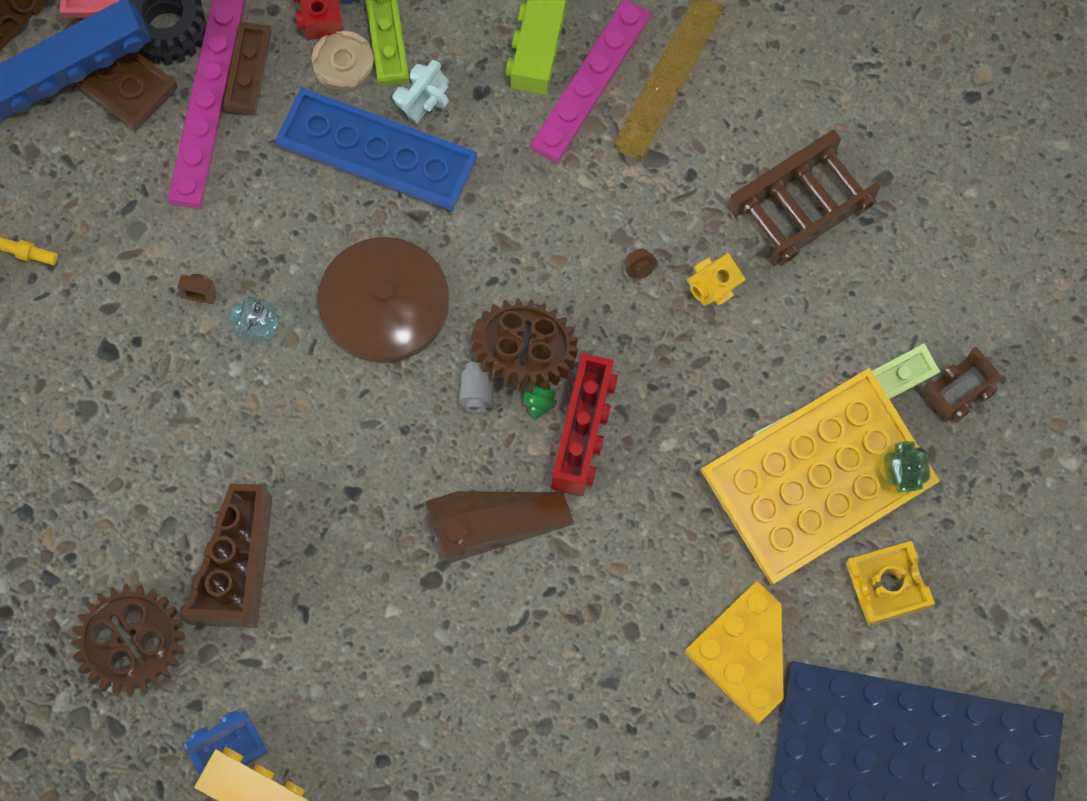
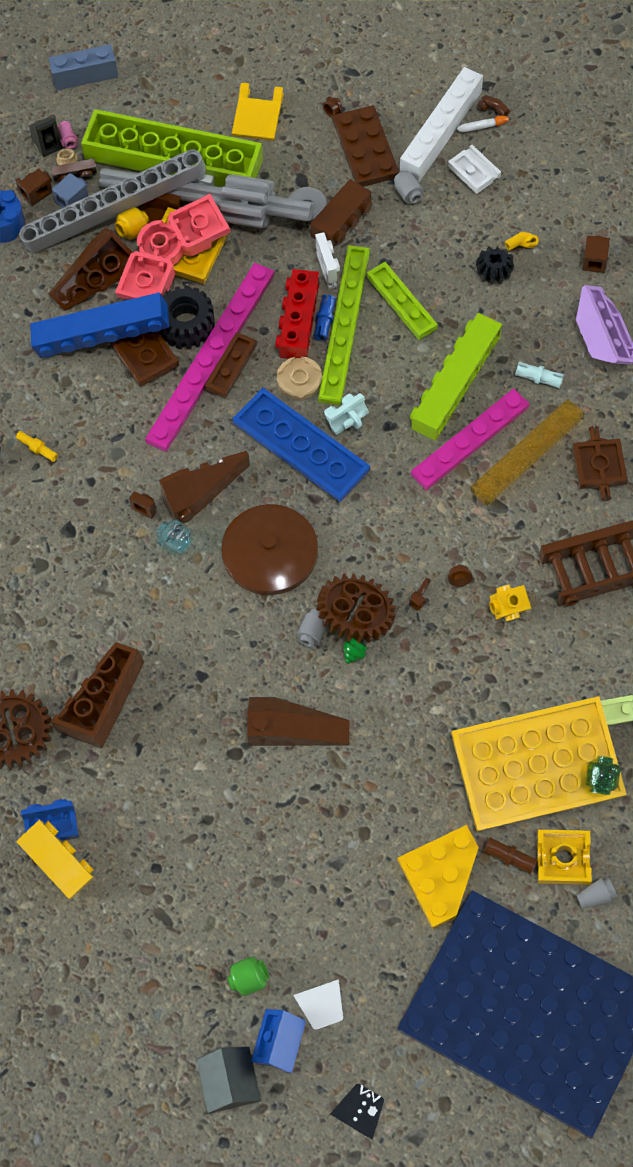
camera: 25 degrees right, 5 degrees down
(254, 253) = (190, 491): none -> reddish brown wedge
(582, 425) = (377, 676): red brick -> none
(596, 310) = (417, 600): none -> reddish brown hand
(765, 66) = (599, 463): none -> reddish brown plate
(823, 602) = (510, 855): none -> reddish brown pin
(945, 616) = (597, 894): none -> light grey cone

